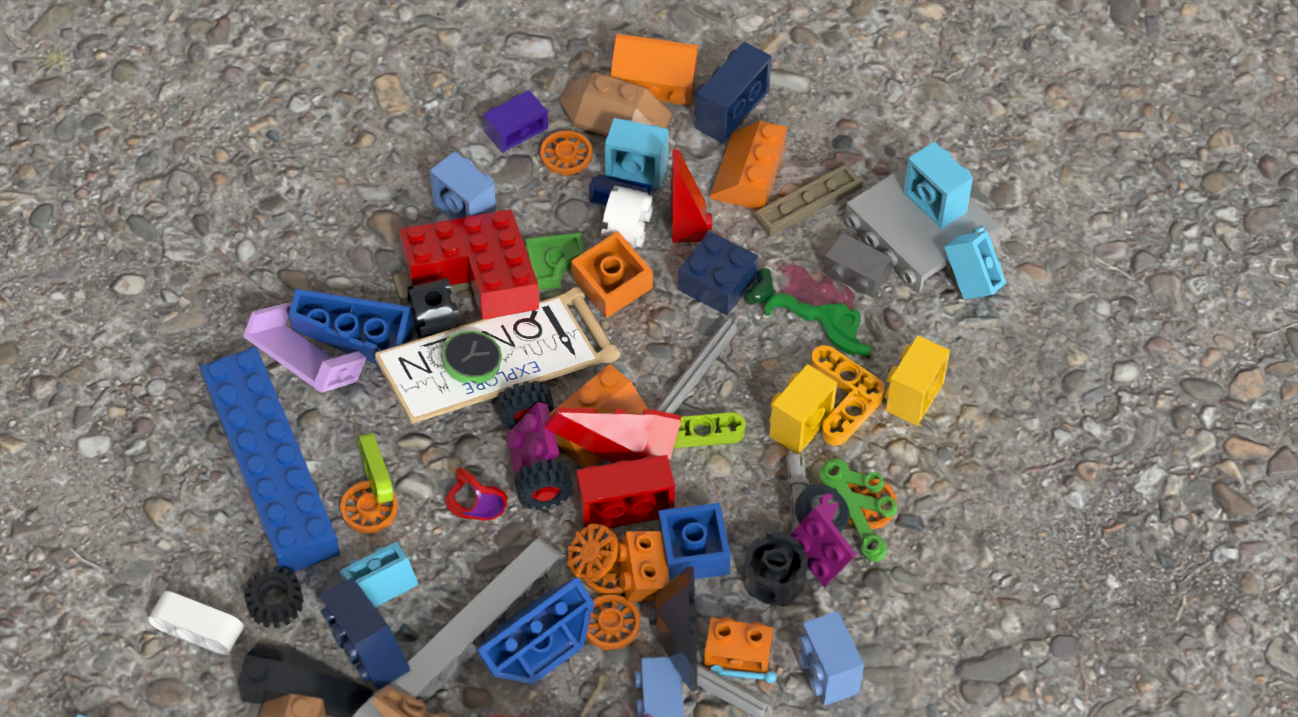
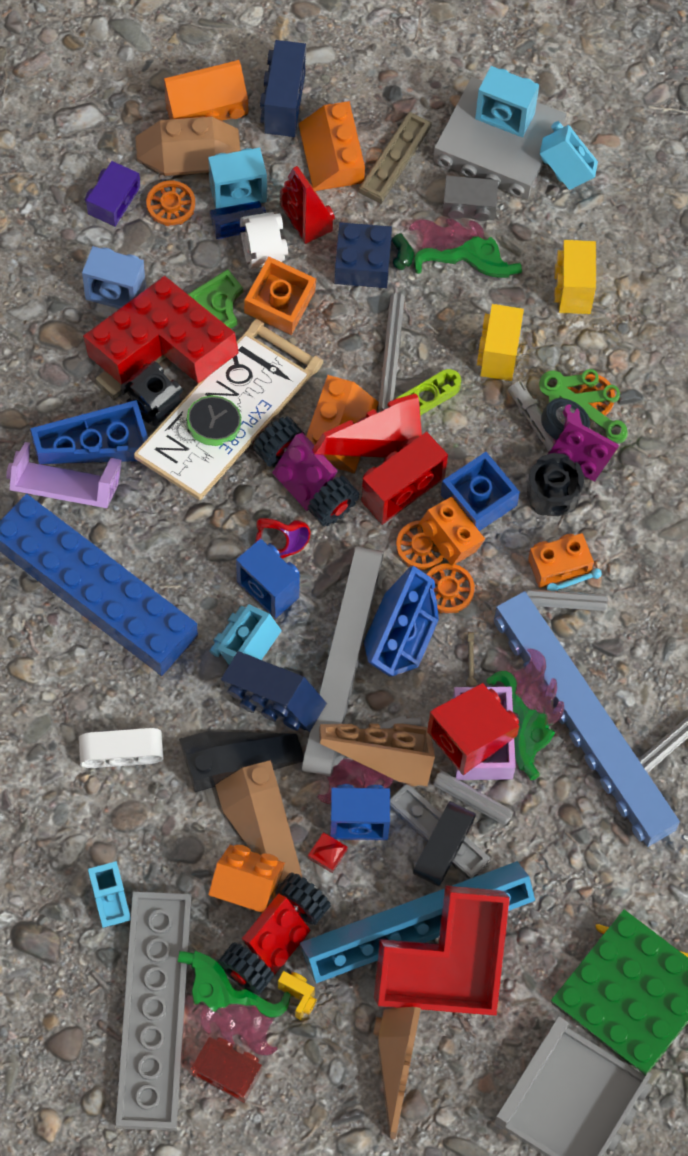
camera: 30 degrees left, 10 degrees up
(266, 583) = (170, 680): black tyre -> none
(367, 509) = (198, 585): orange wheel -> none
(375, 468) = (187, 550): lime beam -> none
(434, 527) = (268, 577): none -> blue brick
(592, 552) = (405, 538): orange wheel -> none
(676, 624) = (513, 567): black wedge -> none
(830, 658) = (639, 537): medium blue brick -> none
(856, 393) = (532, 310): light orange beam -> none

